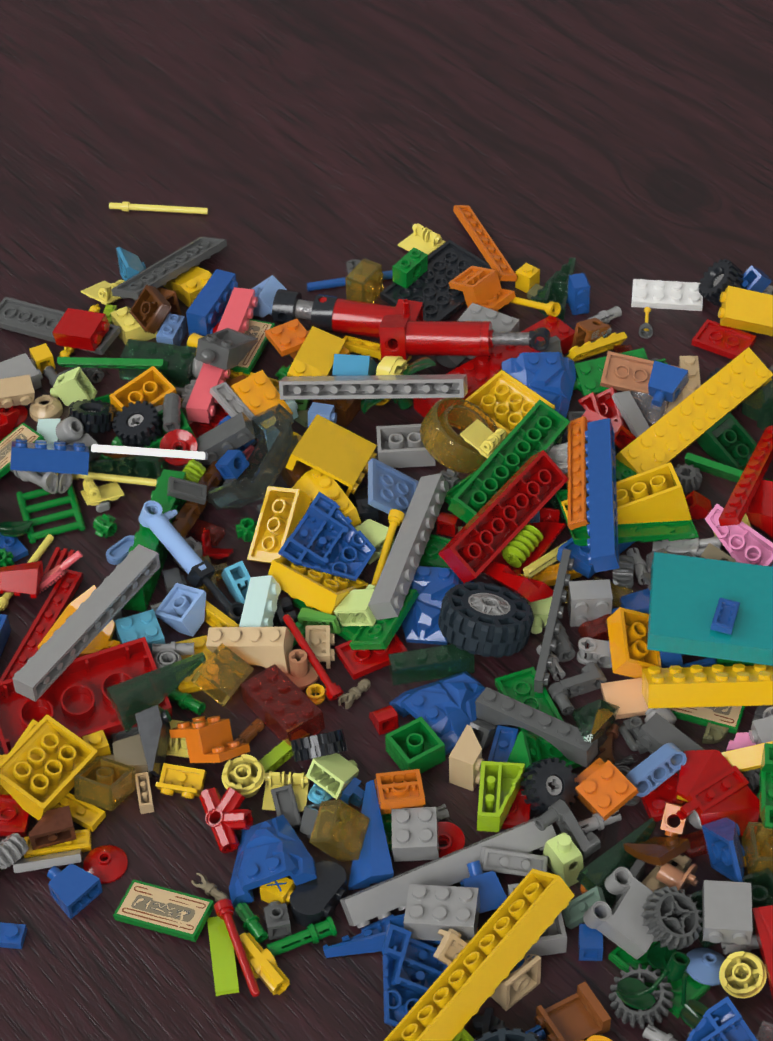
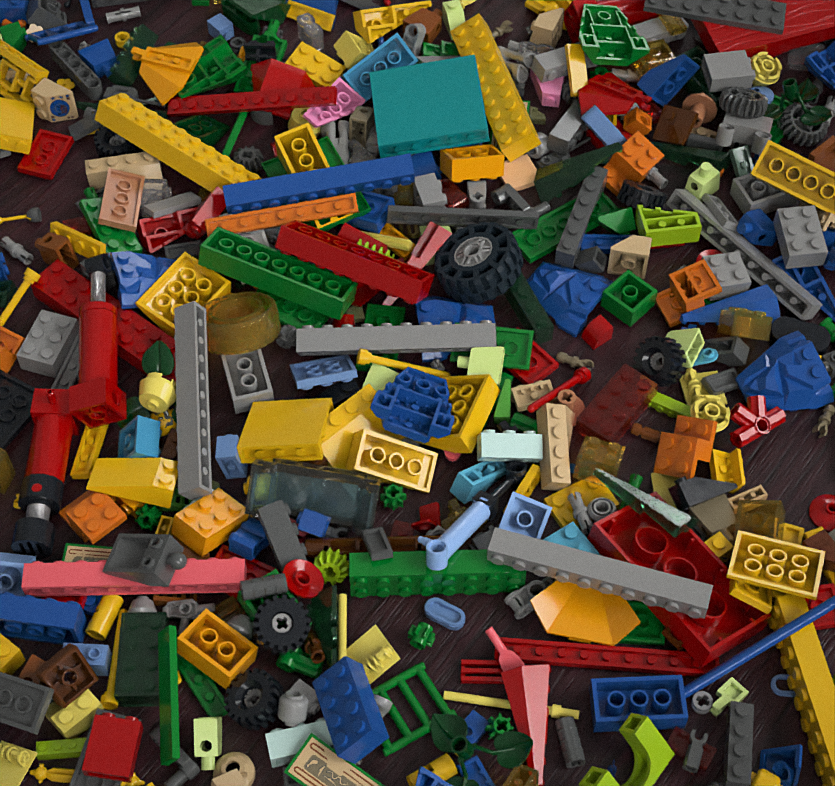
camera: 105 degrees left, 10 degrees up
(149, 452) = (323, 601): white tile -> none
(230, 401) = (229, 537): light grey tile -> none
(316, 688) = (588, 396): yellow bush -> none
(483, 438) = (252, 290): light yellow hinge -> none
(566, 821) = (677, 179): dark grey beam -> none
(666, 382) = (137, 173): blue torso -> none
(725, 616) = (452, 84): blue plate -> none

